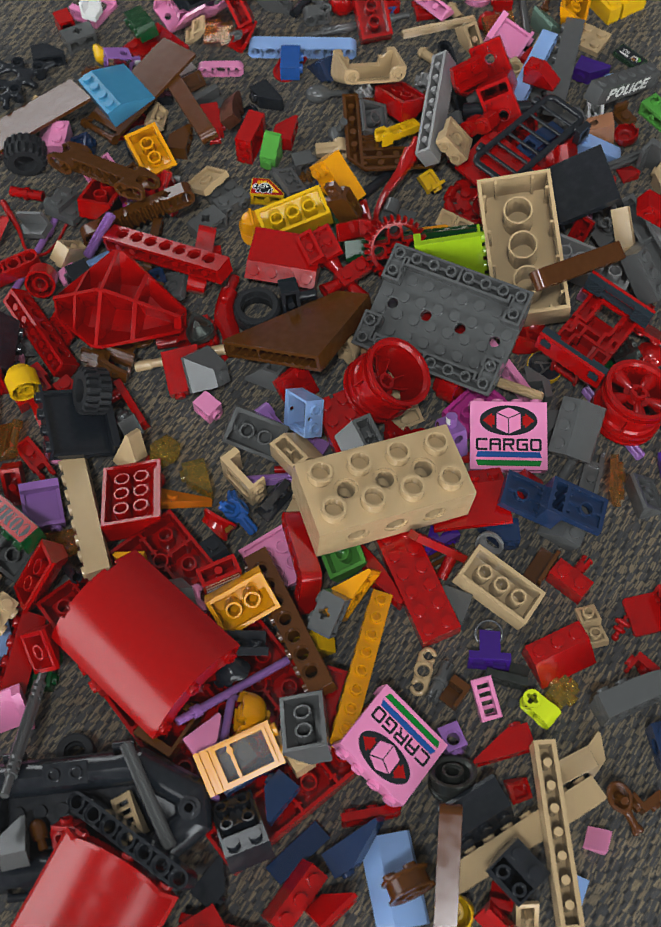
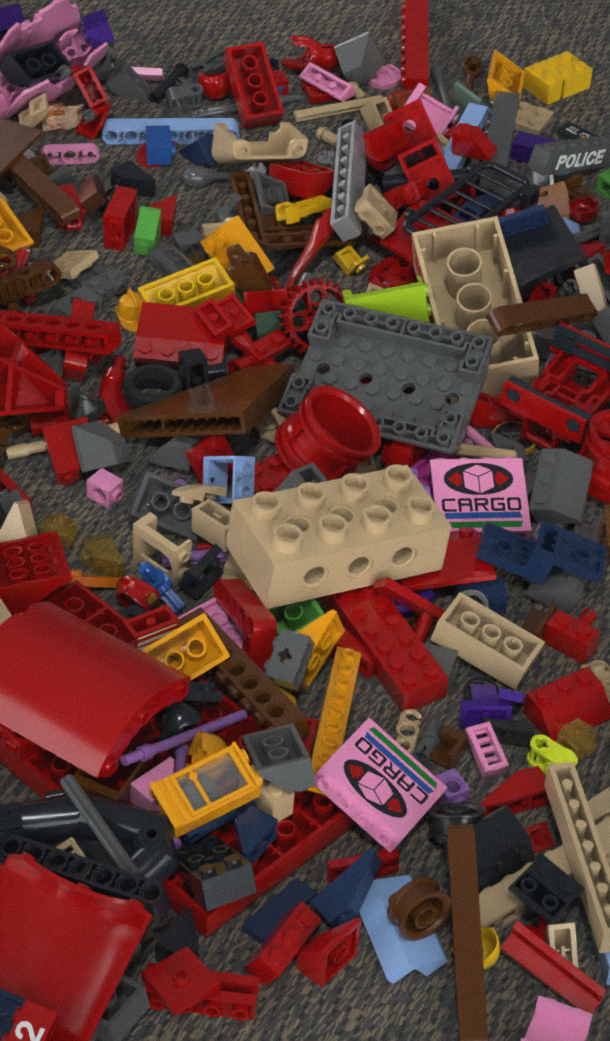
camera: 10 degrees left, 20 degrees down
(264, 192) = (143, 272): slope -> none
(275, 425) = (198, 492): none -> tan slope
(512, 645) = (510, 695): none -> dark purple tile
(568, 160) = (524, 220): none -> dark blue tile

